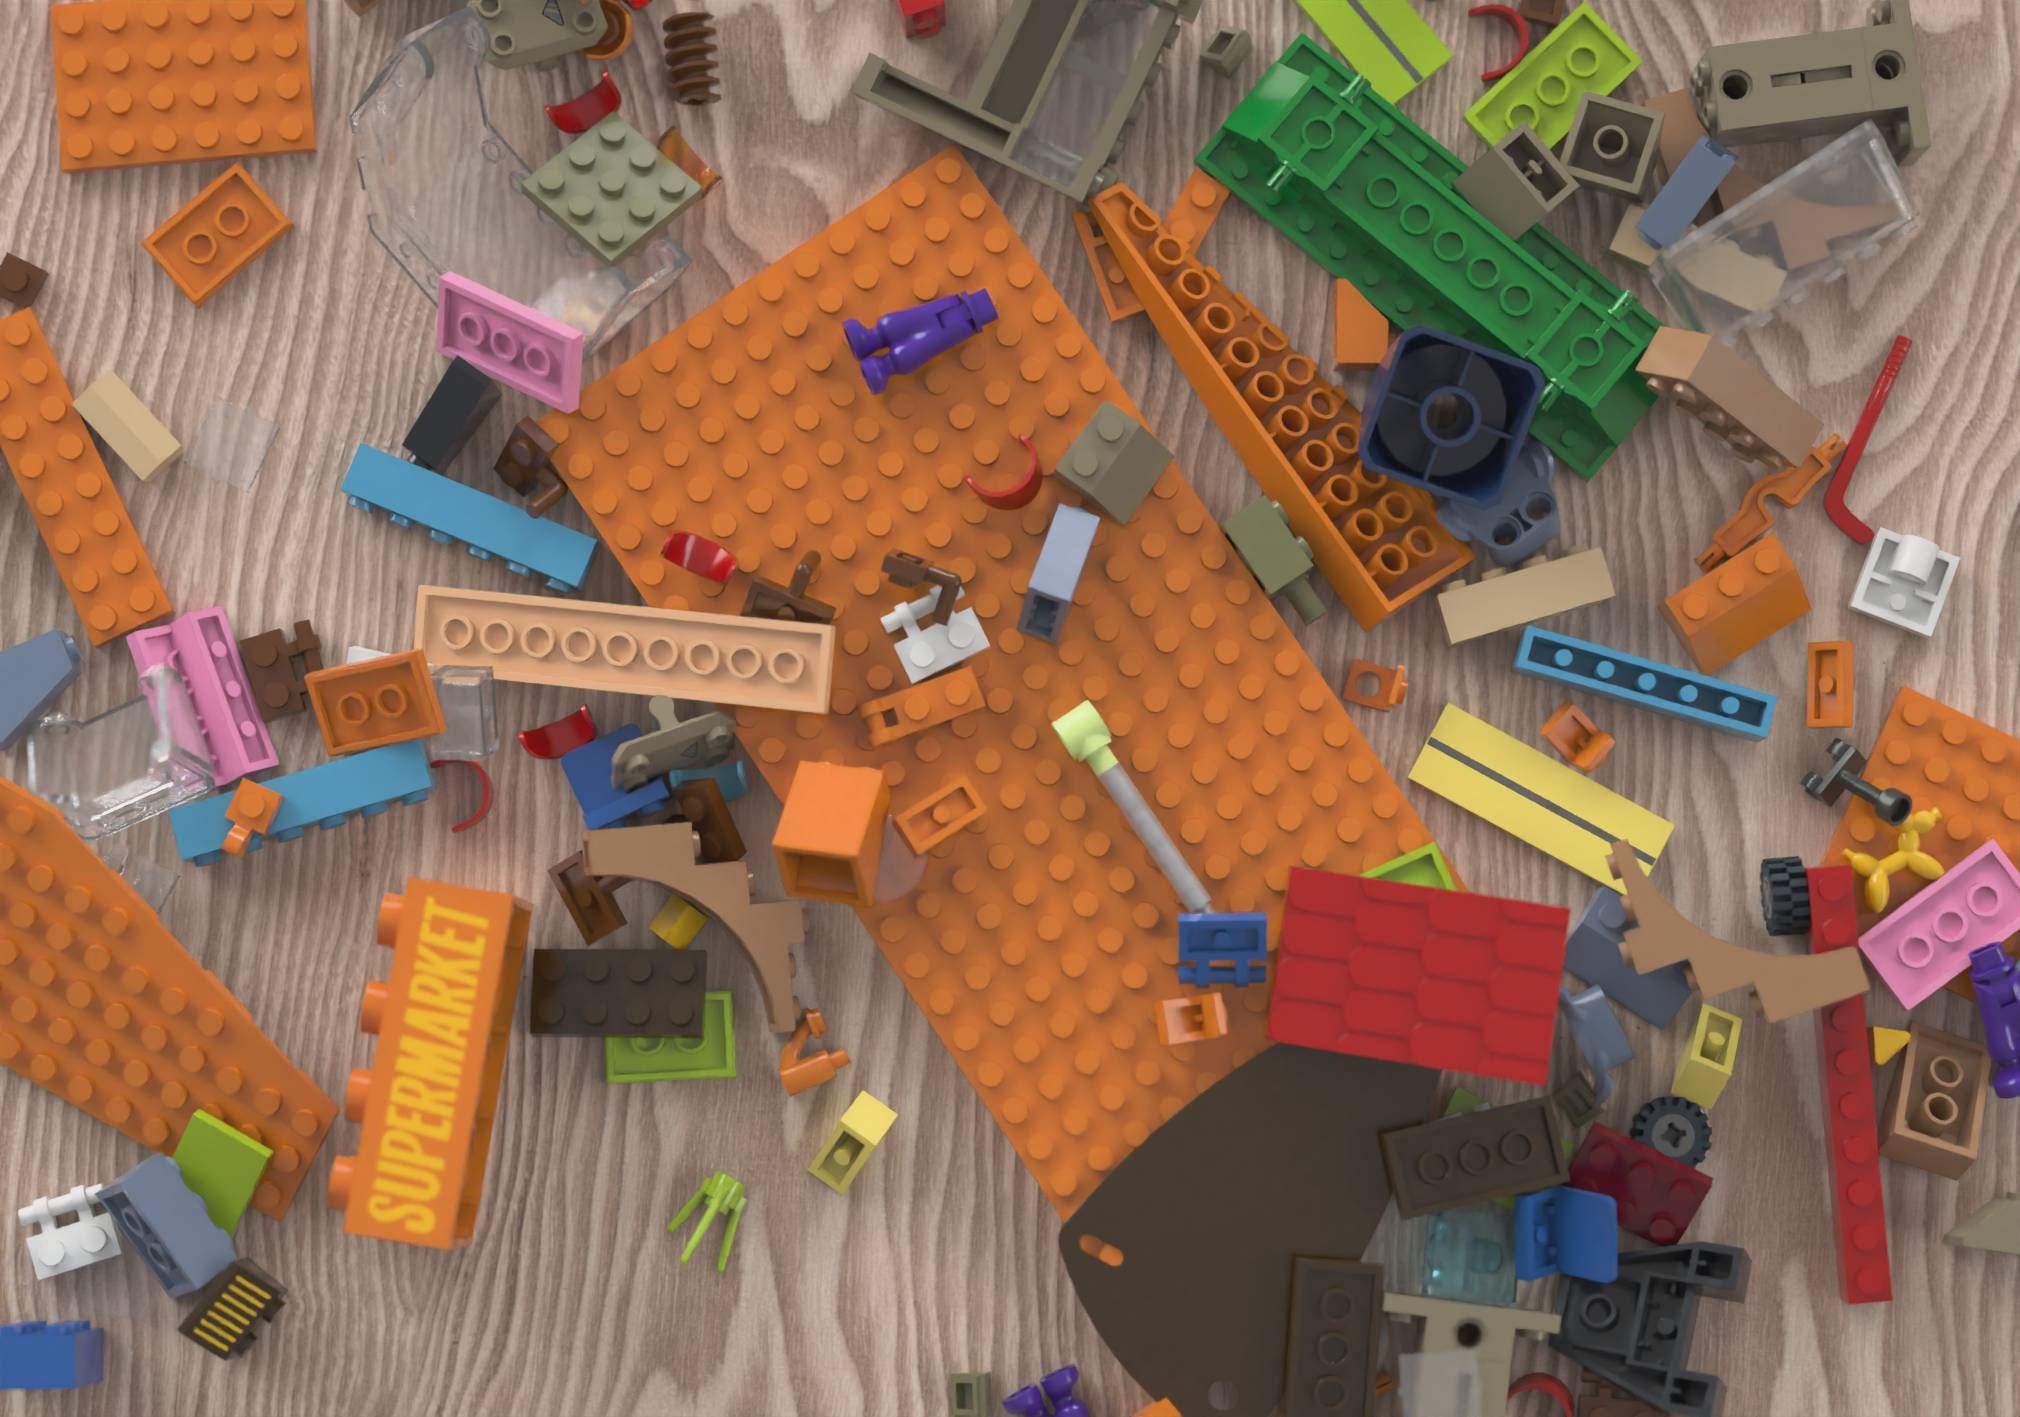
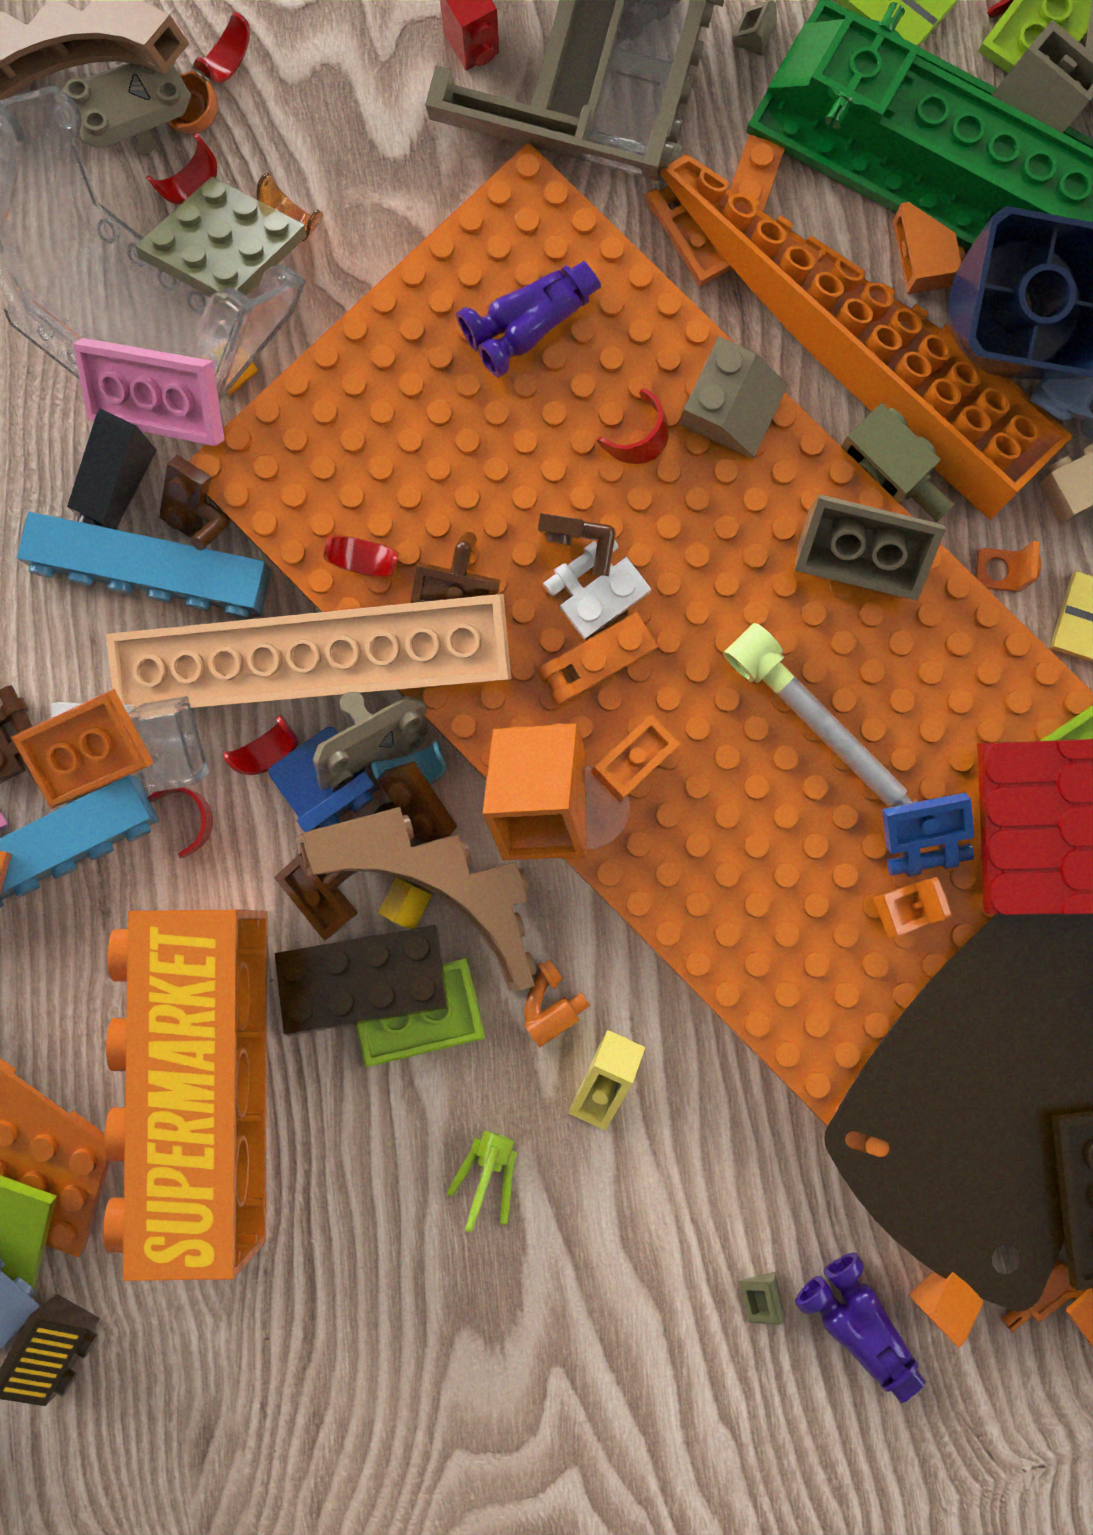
camera: 10 degrees left, 0 degrees up
(688, 59) = (274, 114): reddish brown piece -> none
(1057, 573) = (703, 510): slope -> none
(1213, 647) = (867, 547): none -> dark tan slope

